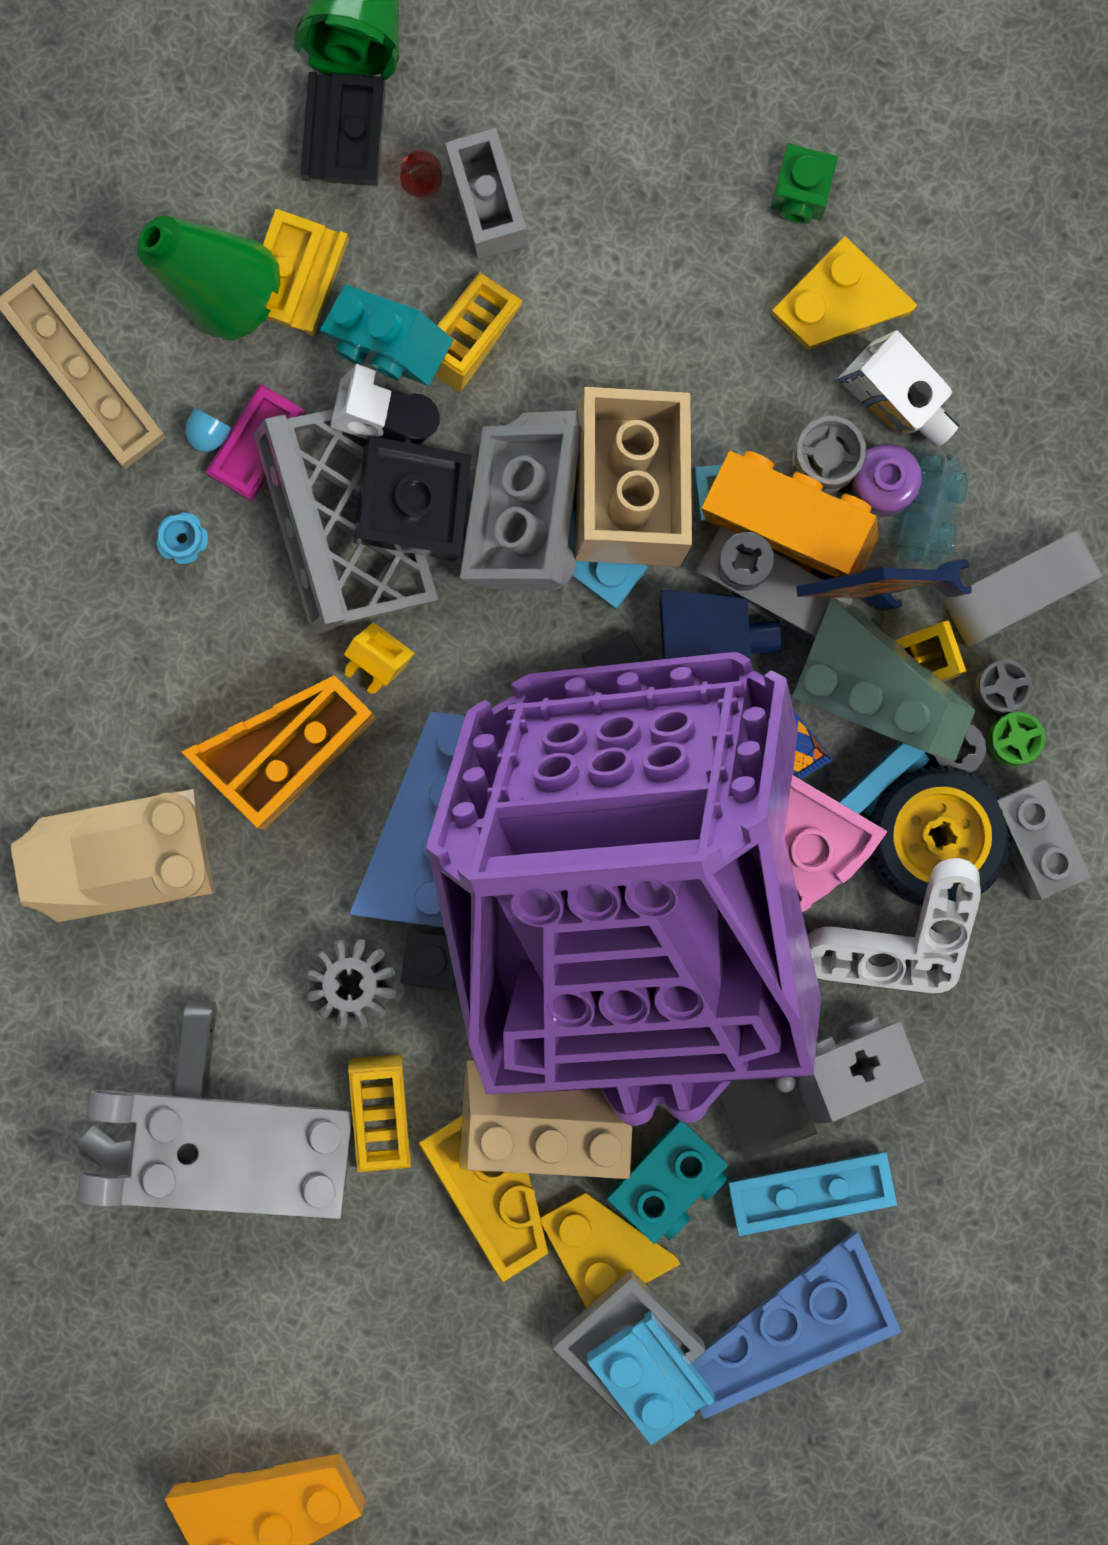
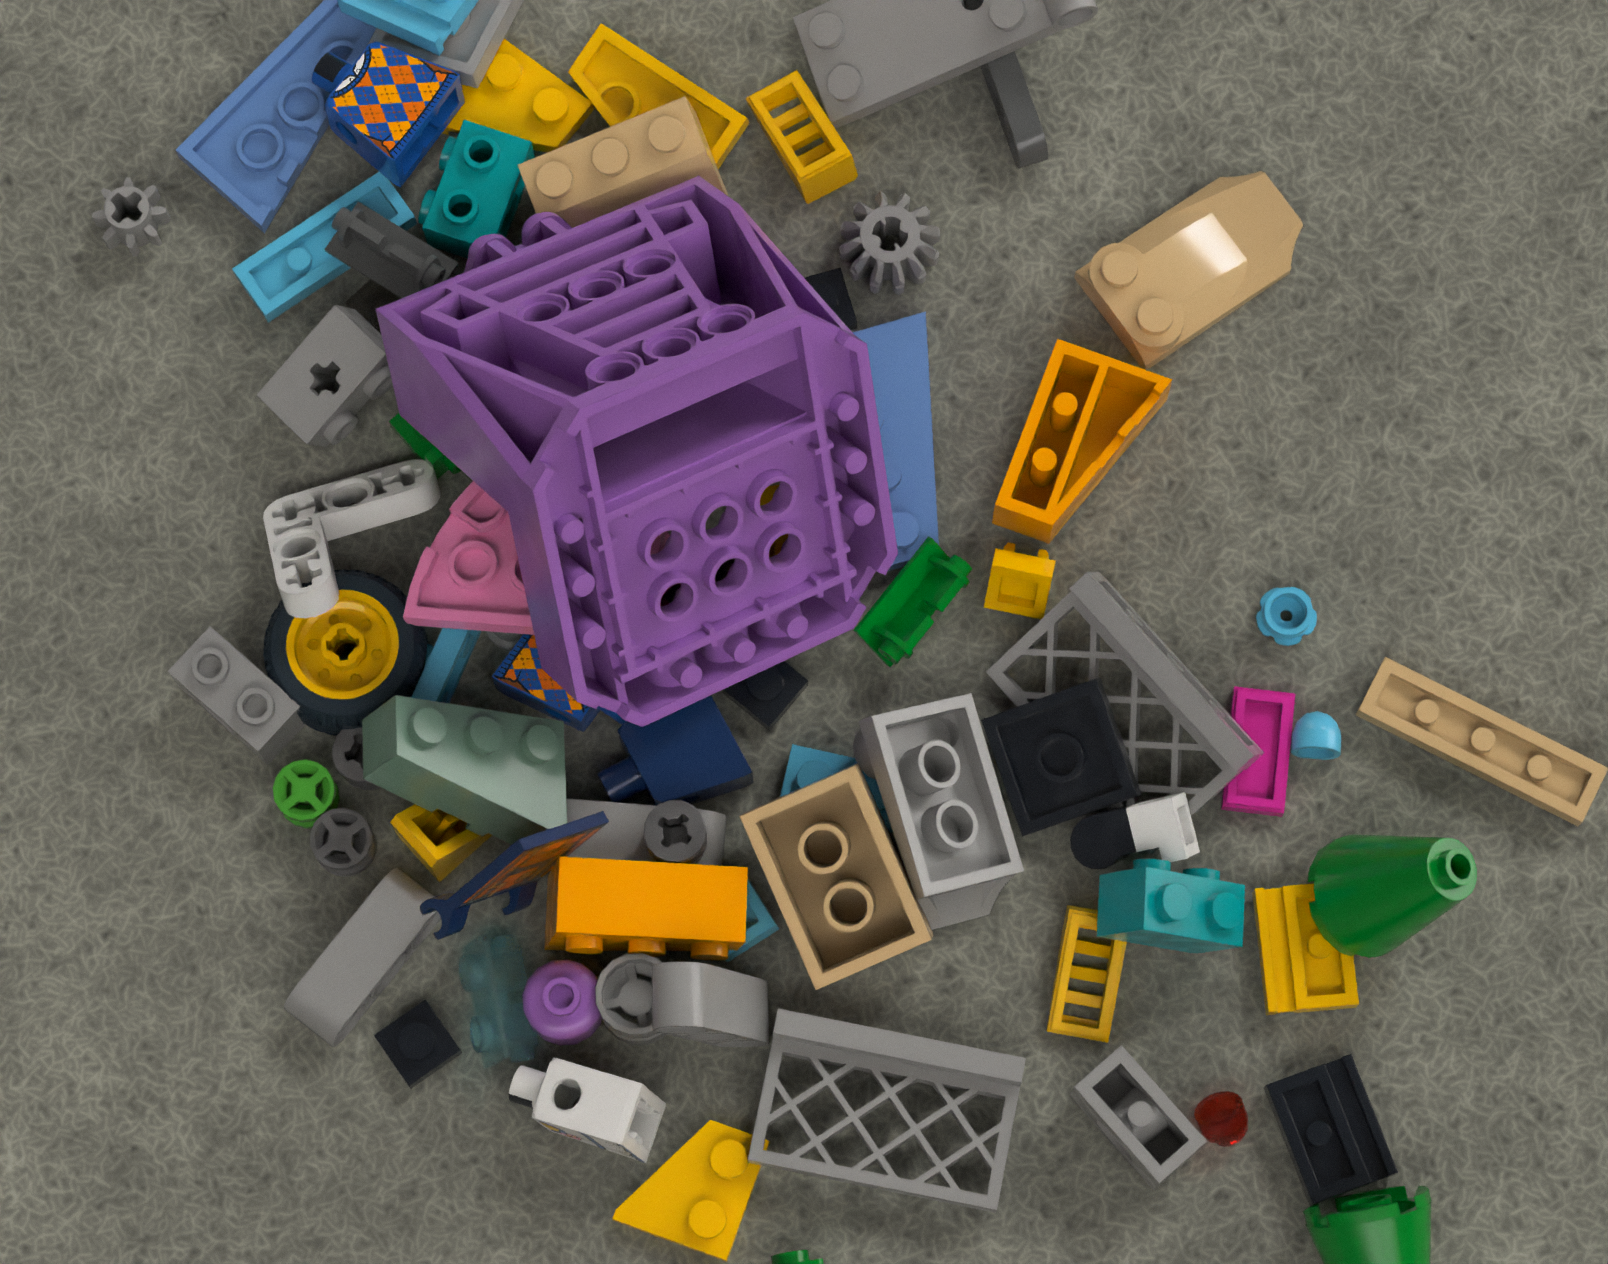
camera: 155 degrees right, 10 degrees down
(490, 667) = (905, 607): none -> green hinge
(644, 325) = (895, 1056): none -> light grey fence
(712, 1286) = (389, 105): none -> blue torso
(764, 1153) = (387, 252): none -> dark grey hinge
(778, 415) = (710, 1004): none -> light grey beam
(946, 1287) = (126, 231): none -> light grey gear
(1008, 506) = (418, 1044): none -> black plate

